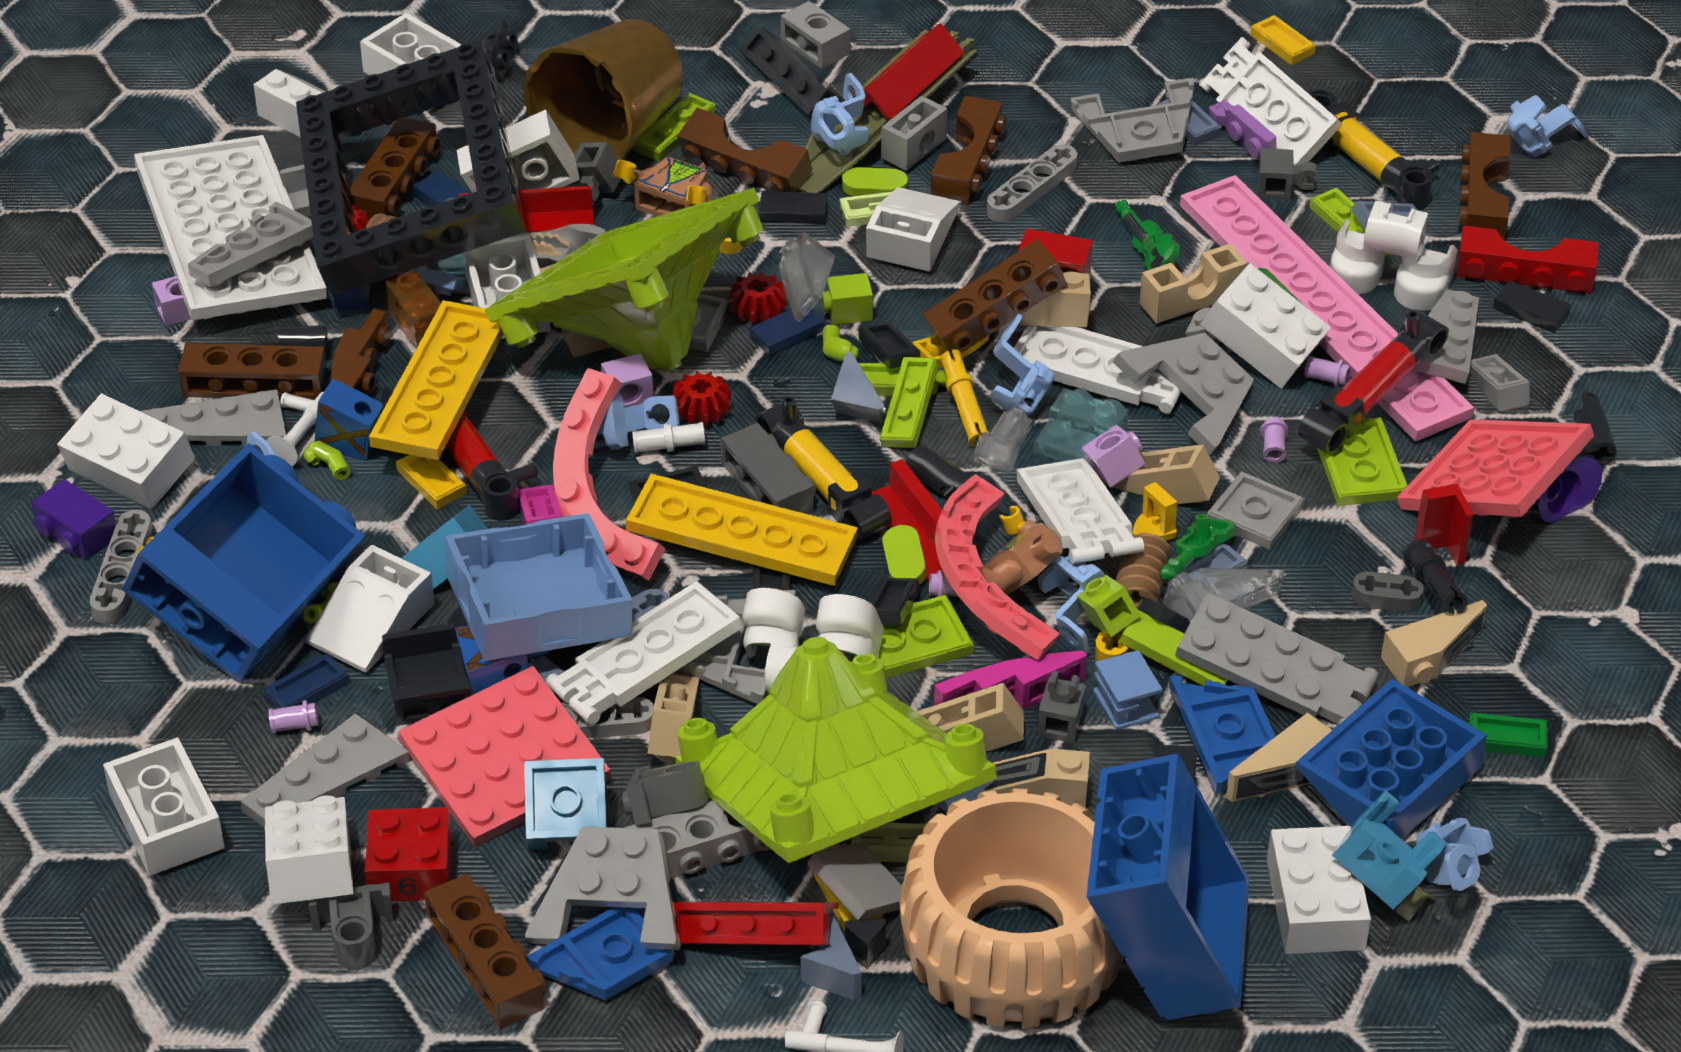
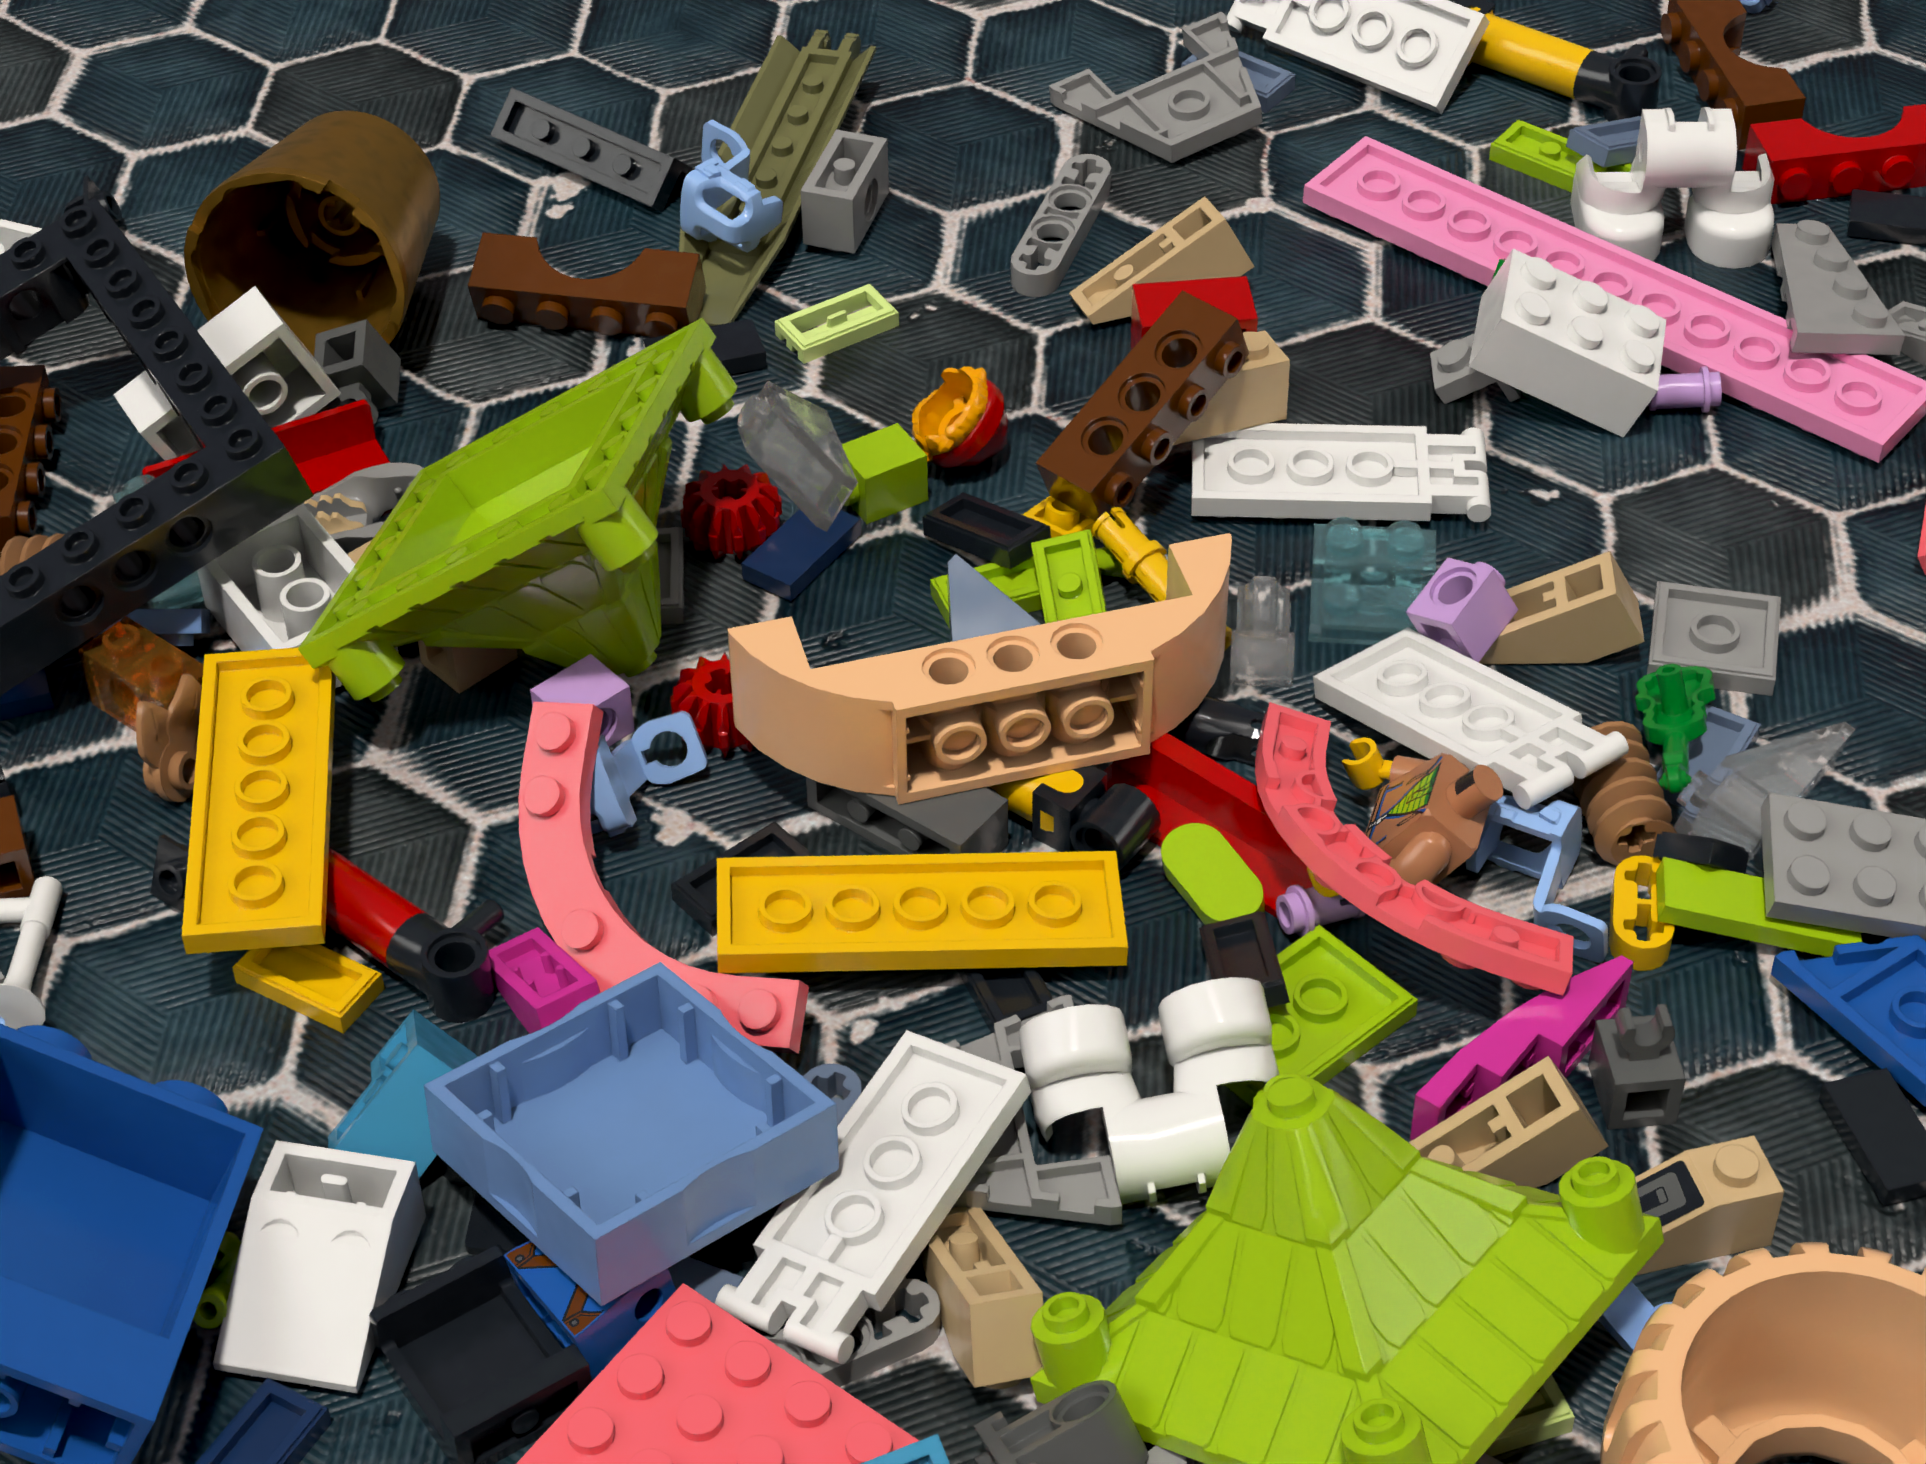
camera: 20 degrees left, 0 degrees up
(332, 456) = (107, 991): lime arm -> none
(347, 420) = (118, 920): blue torso -> none
(359, 352) = (82, 816): reddish brown slope -> none
(407, 337) = (169, 741): none -> medium nougat plate
(437, 189) = (92, 475): dark blue tile -> none
(662, 135) = (444, 278): lime tile -> none
(667, 185) = (491, 371): torso -> none
(668, 437) = (701, 786): white pin -> none
(815, 34) = (604, 84): light grey brick -> none
(834, 346) = (900, 558): lime arm -> none
(834, 433) = (992, 702): none -> light nougat slope
(869, 181) = (812, 281): lime tile -> none
(905, 282) = (961, 420): none -> light orange hair
(910, 228) = (917, 332): white slope -> none
(912, 71) = (794, 98): red panel -> none
(960, 172) = (948, 232): reddish brown arch -> none
(1033, 381) = (1255, 523): light blue piece -> none
(1087, 218) = (1185, 248): none -> tan slope
(1108, 605) = (1618, 864): lime brick -> none
(1126, 690) = (1720, 1001): medium blue piece -> none
(1149, 238) = (1325, 276): green piece -> none
(1158, 513) = (1585, 680): yellow tile -> none
(1169, 294) = (1387, 331): tan arch -> none
(1201, 373) = (1513, 446): light grey wing -> none
(1243, 127) = (1339, 70): medium lavender hinge -> none
(1274, 434) = (1669, 508): lavender pin -> none
(1278, 174) = (1426, 121): dark grey brick -> none
(1345, 408) = (1775, 421): black piece -> none
(1365, 467) = (1818, 517): lime tile -> none

